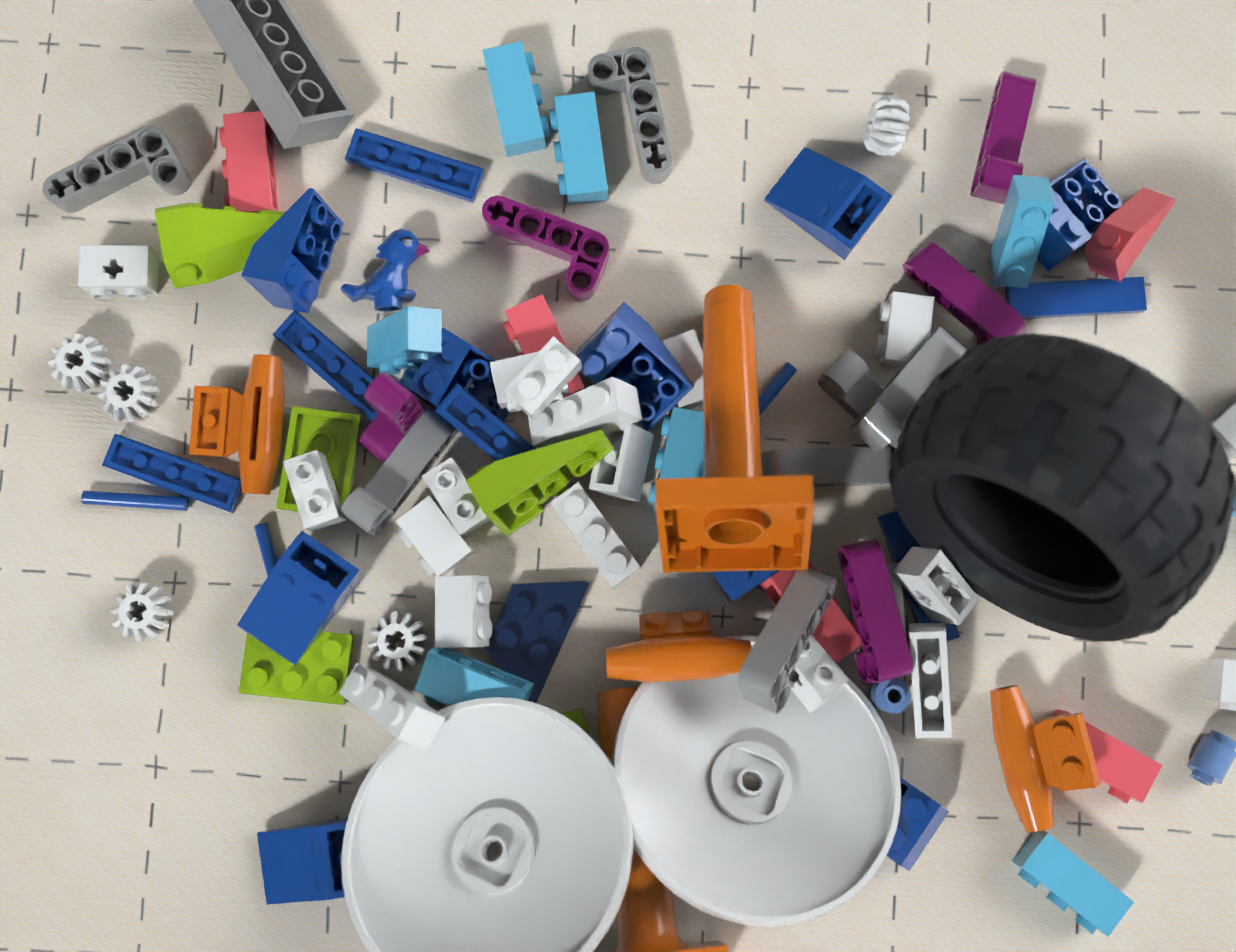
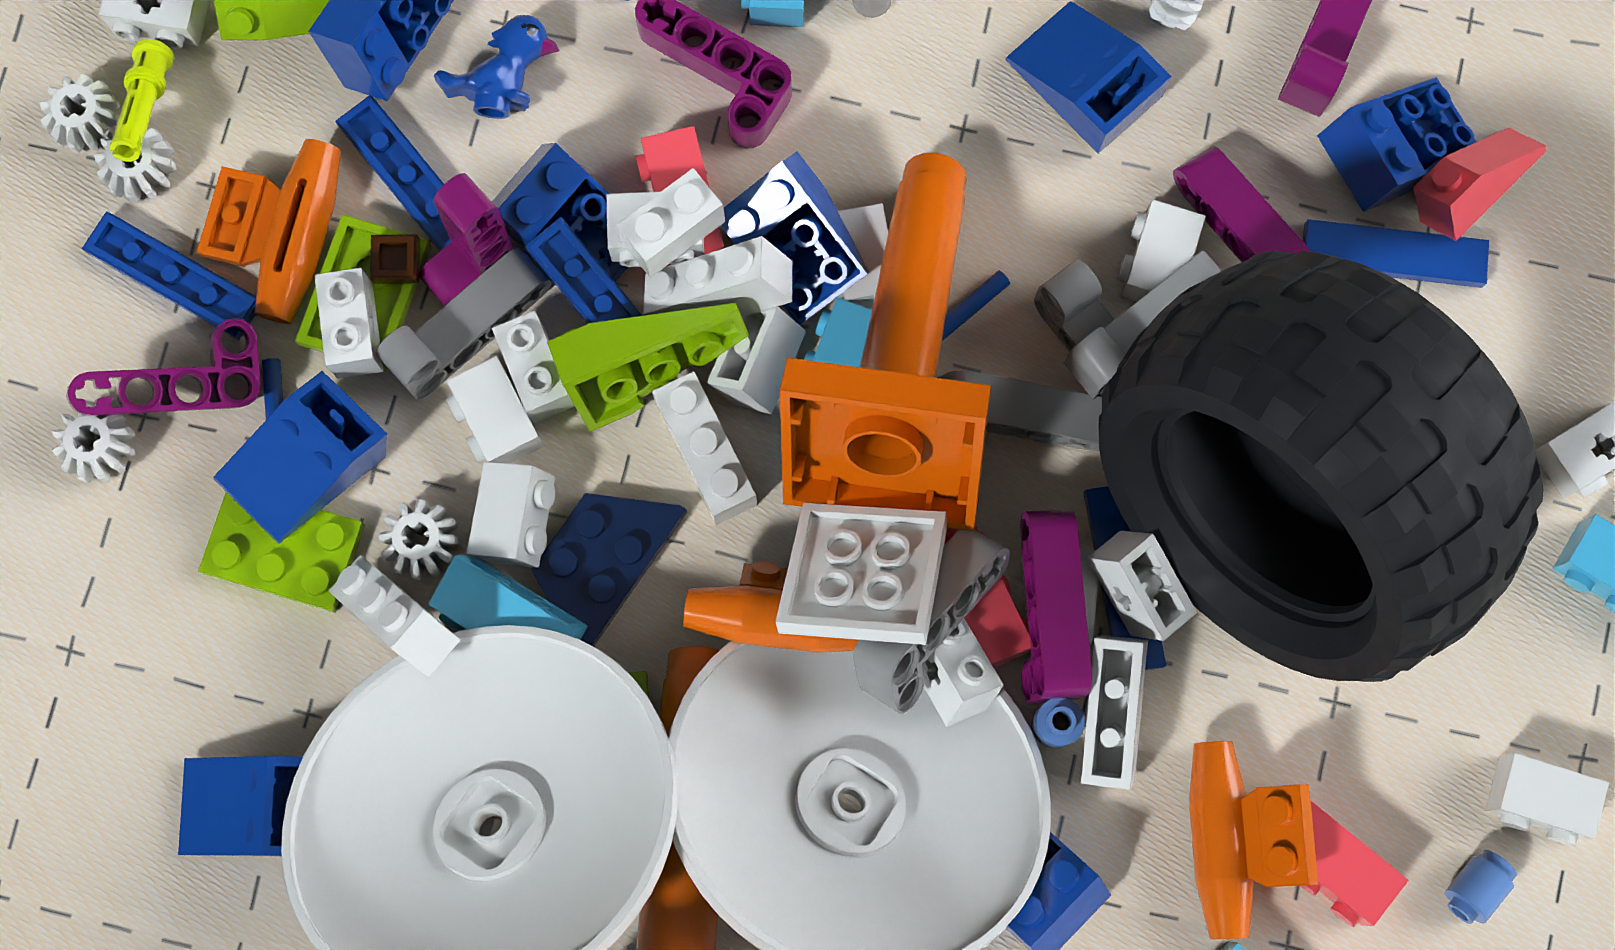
camera: 10 degrees right, 5 degrees down
(123, 334) = (143, 85): none -> neon yellow pin
(135, 500) = (115, 301): blue bar -> none
(186, 557) = (165, 379): none -> magenta beam
(338, 434) = (395, 259): none -> reddish brown tile
(404, 339) = (504, 146): medium azure brick -> none
(734, 619) = (863, 573): none -> white plate
(1021, 231) = (1331, 148): medium azure brick -> none

